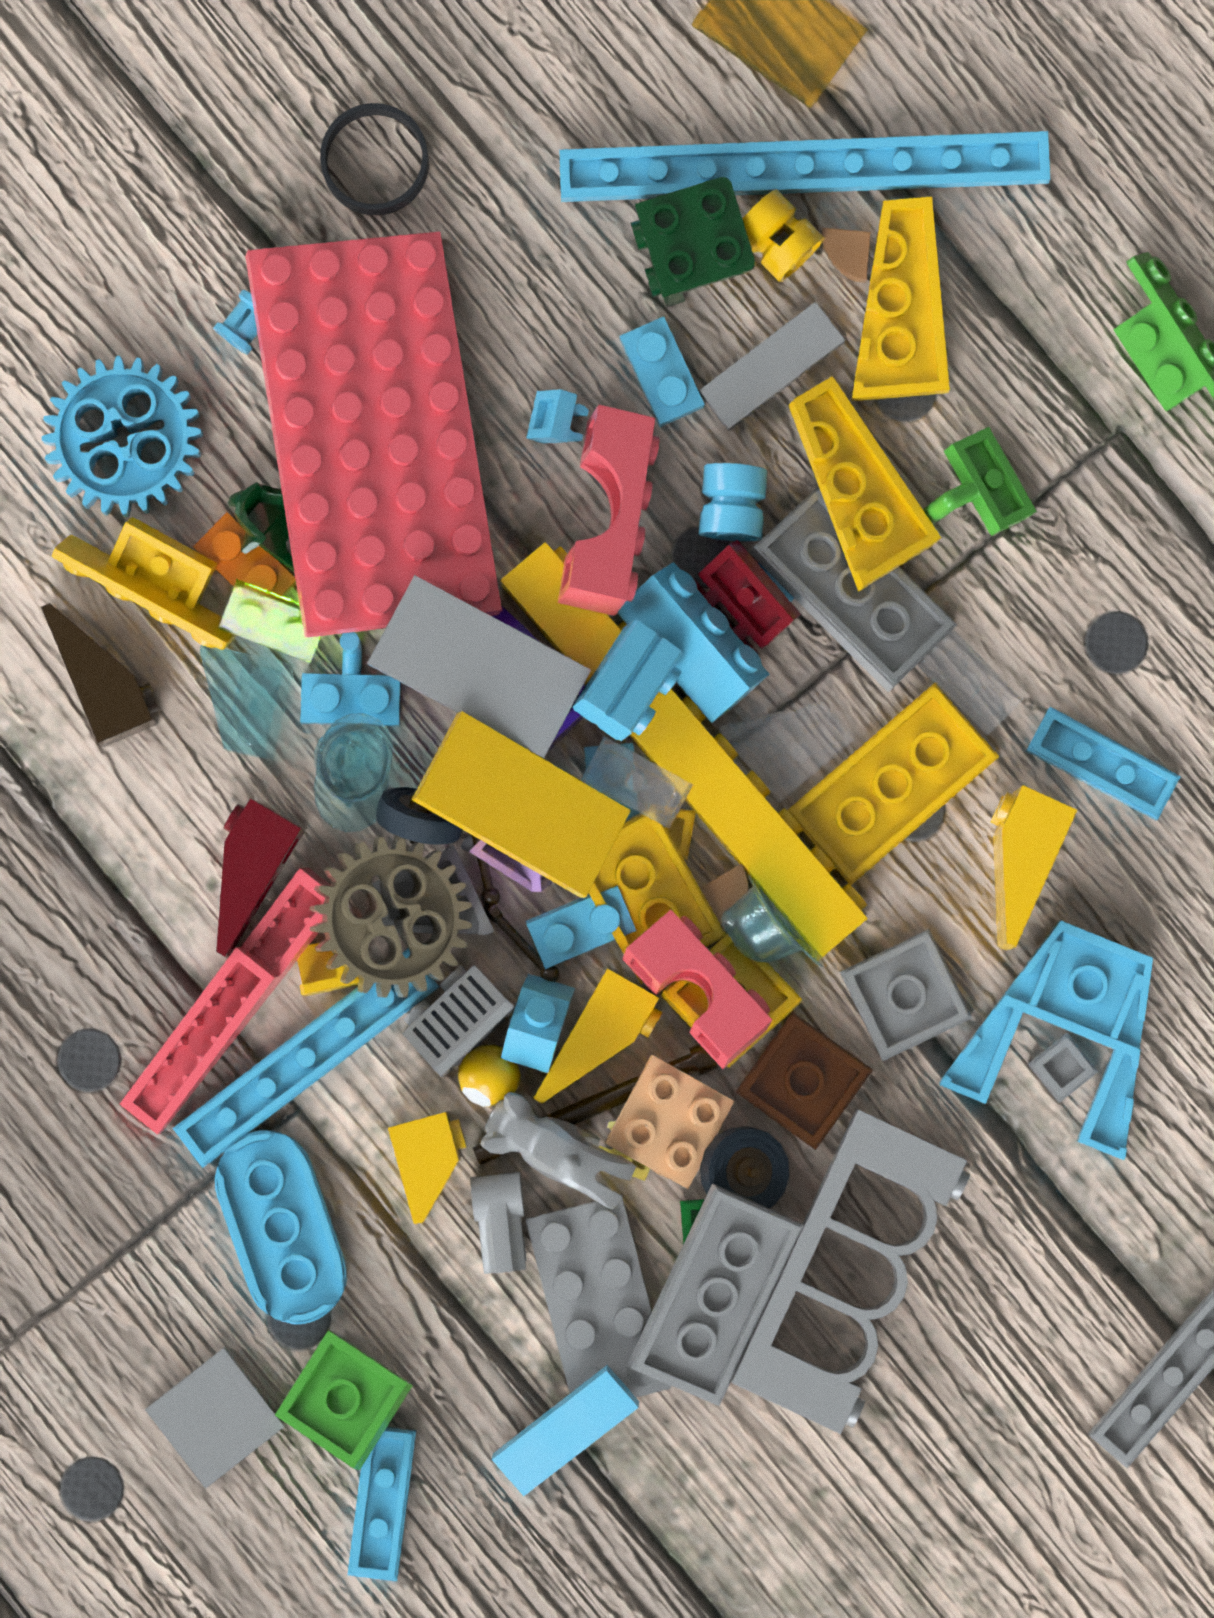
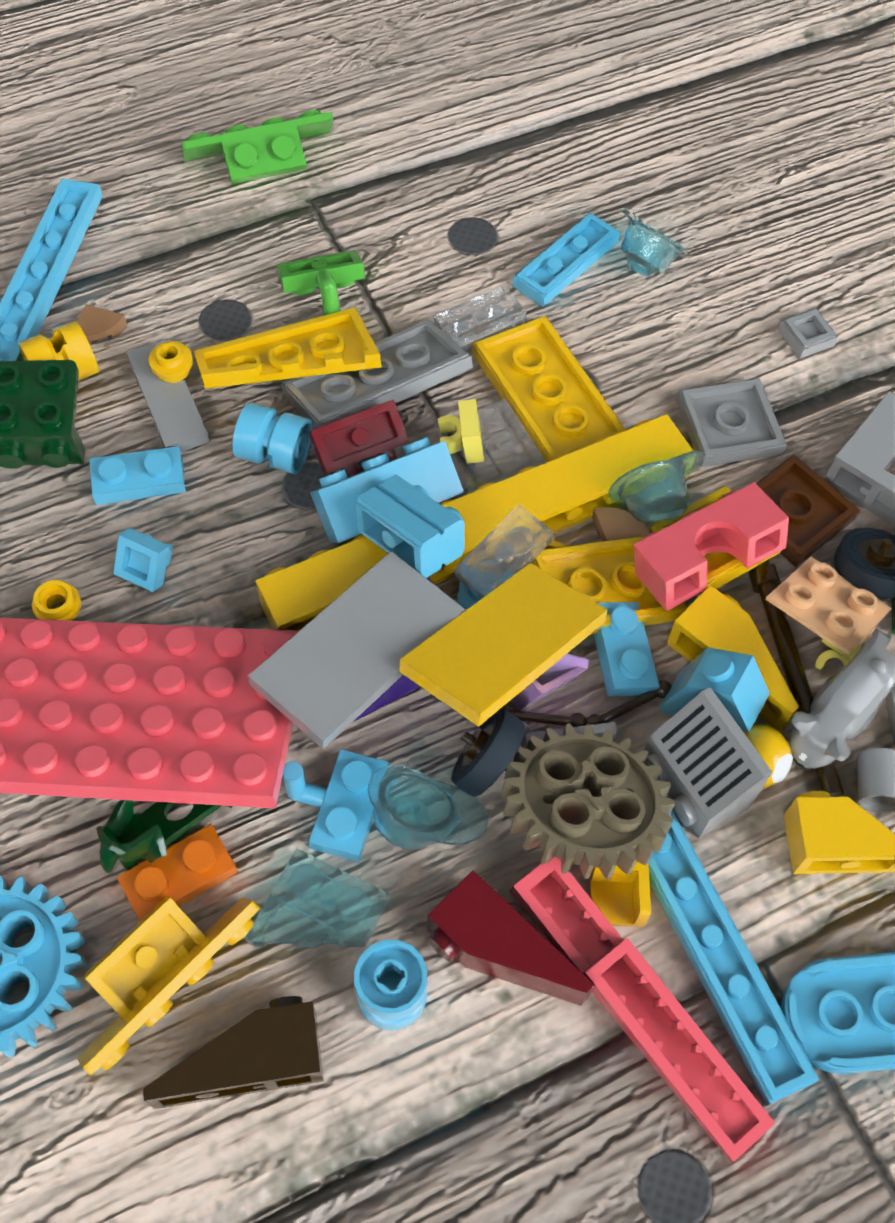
camera: 80 degrees left, 25 degrees down
(186, 782) = (391, 984): none -> medium azure wheel
(267, 621) = (245, 856): clear neon green plate -> none
(482, 334) = (52, 593): none -> yellow plate
(617, 455) = (200, 509): coral arch -> none
(783, 710) = (466, 431): none -> light yellow tile
(801, 373) = (171, 361): none -> yellow plate
(903, 319) = (164, 298): yellow wing -> none
(1024, 851) = (643, 301): yellow slope -> none
(1083, 988) = (747, 300): medium azure wing -> none
(1144, 857) = (646, 248): none -> clear light blue piece

